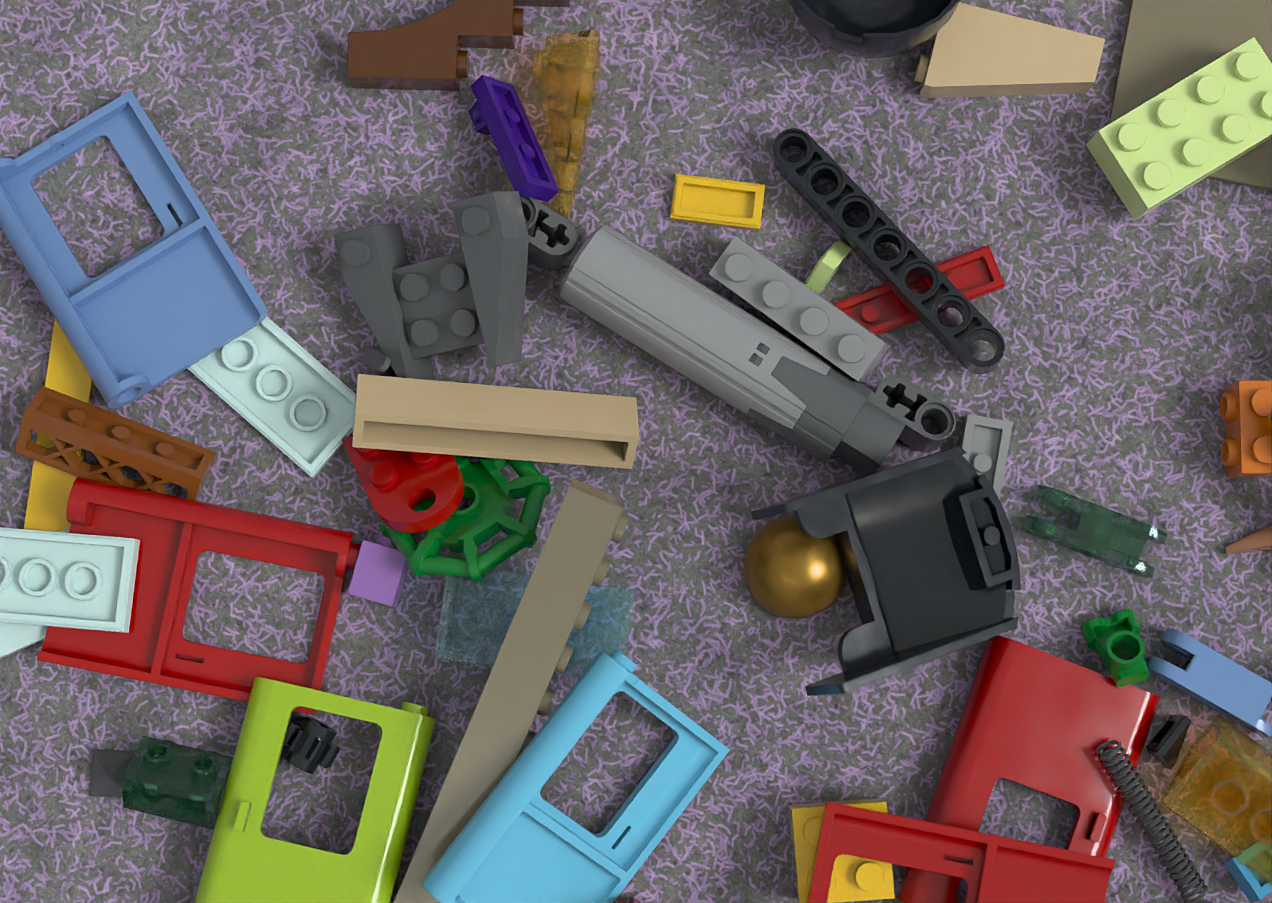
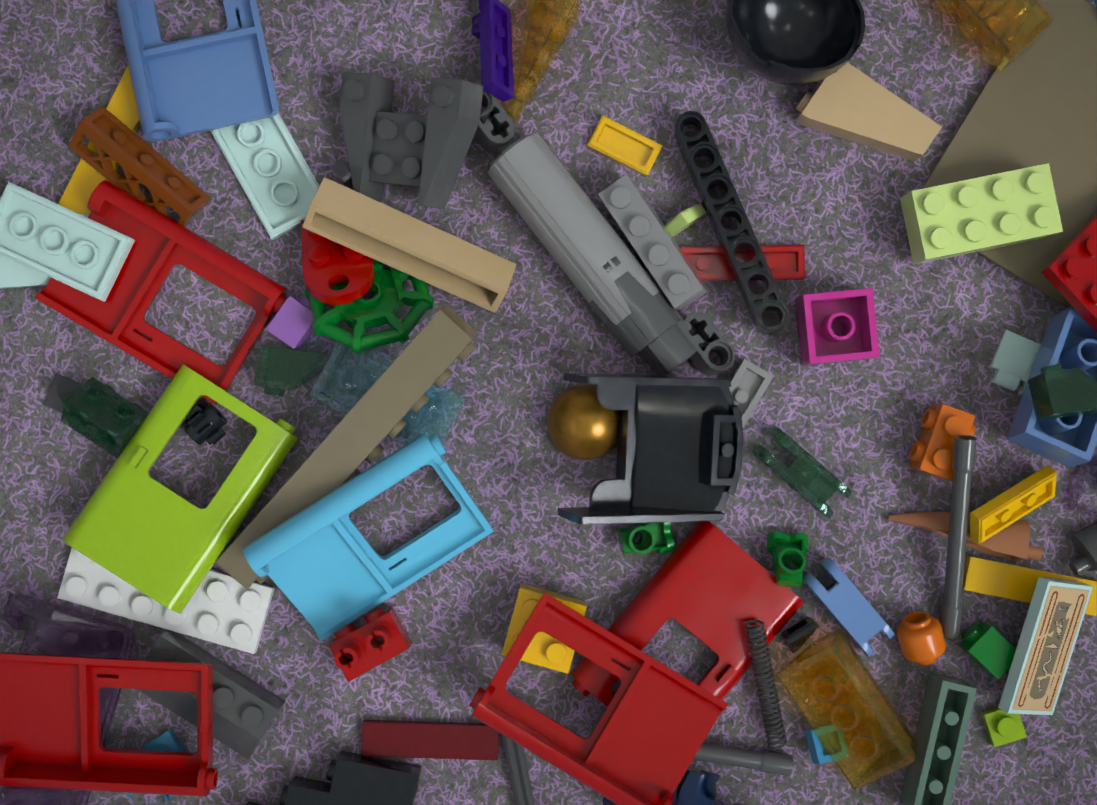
camera: 15 degrees right, 5 degrees up
(391, 635) = (286, 369): none -> clear green slope
(936, 681) = (653, 537): none -> green plate
(1069, 332) = (837, 326): none -> dark pink brick

